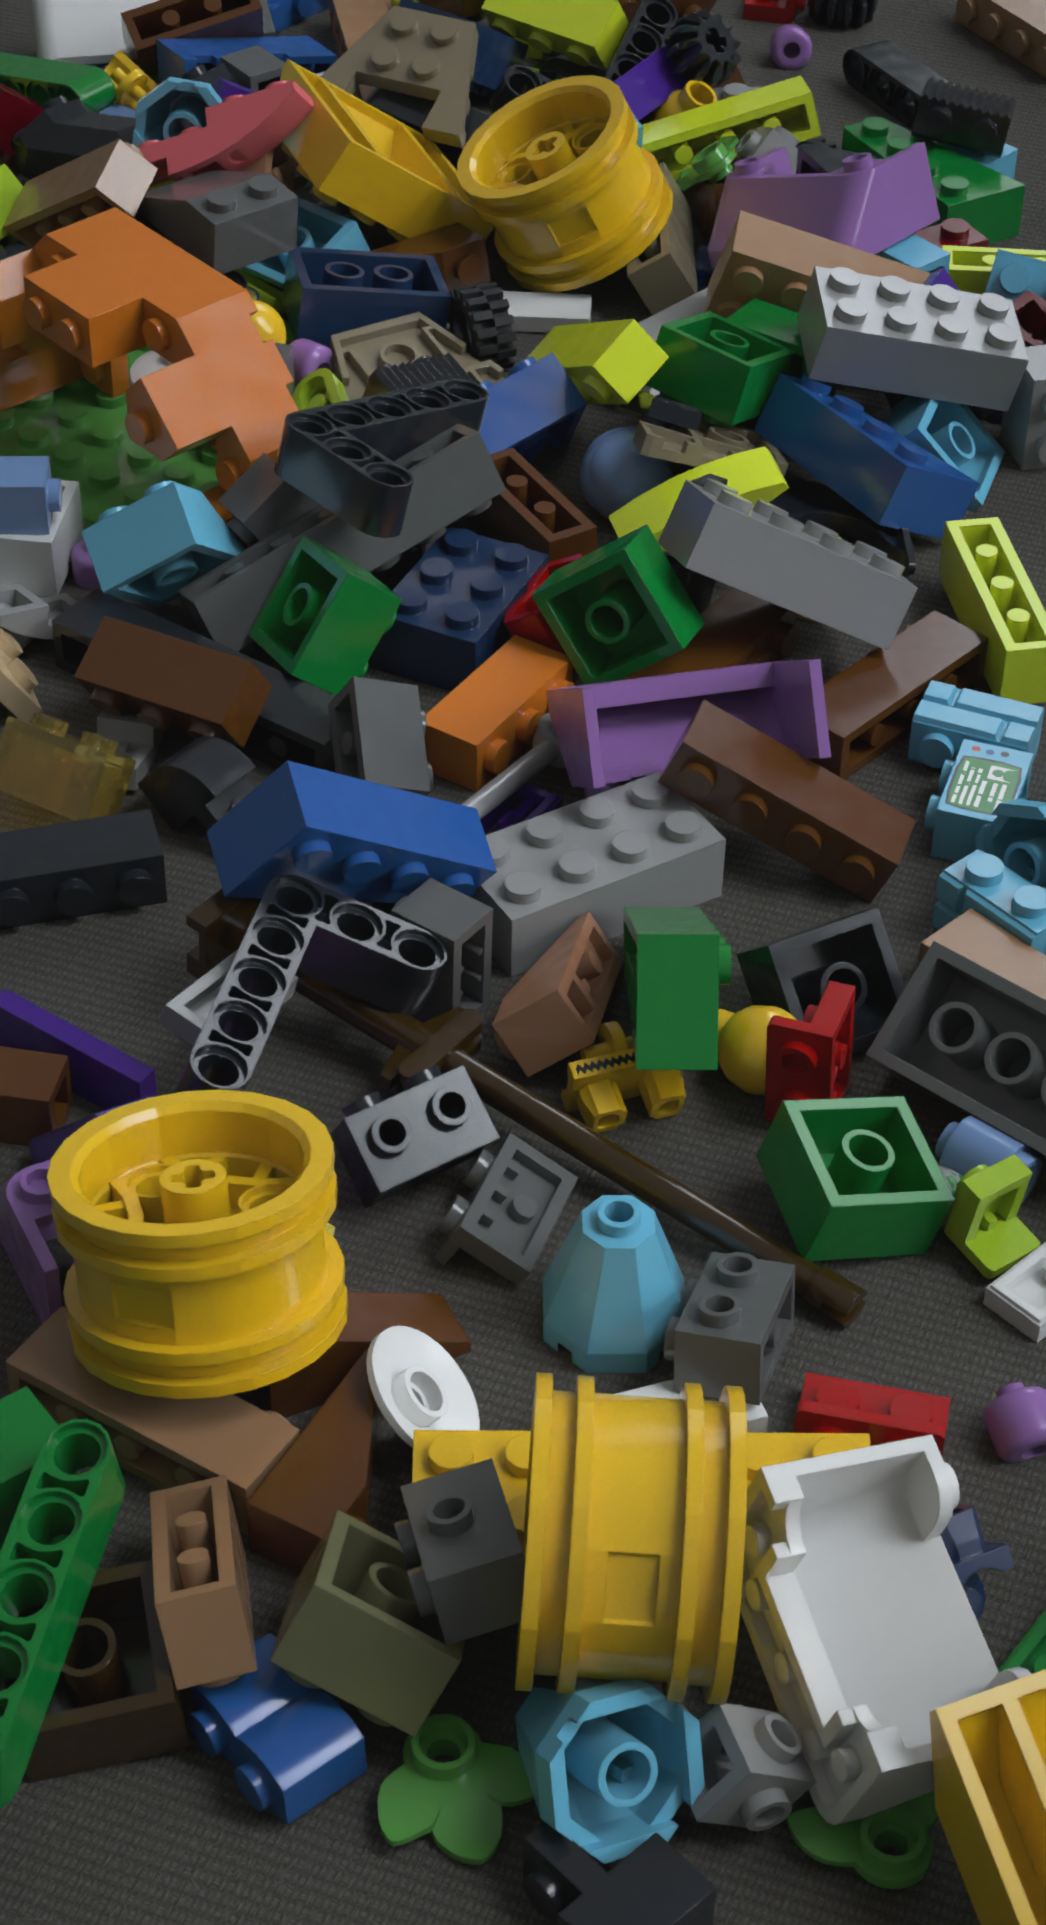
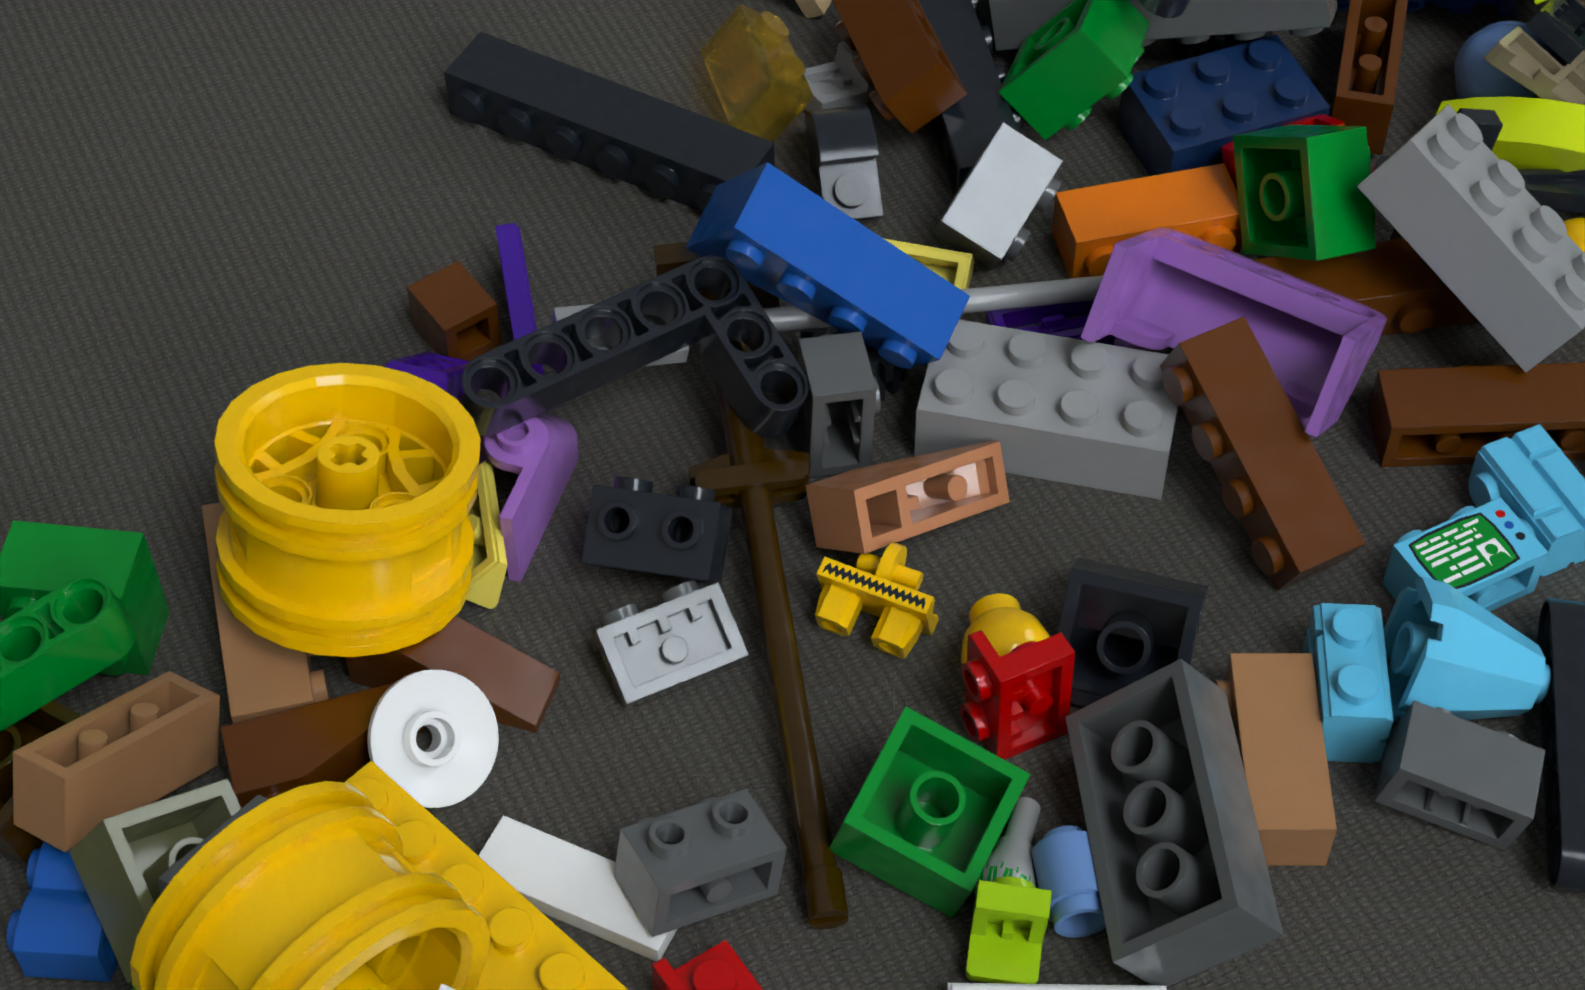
camera: 45 degrees right, 10 degrees up
(612, 1288) = (656, 757): medium azure cone -> none
(673, 986) = (962, 540): green wedge -> none

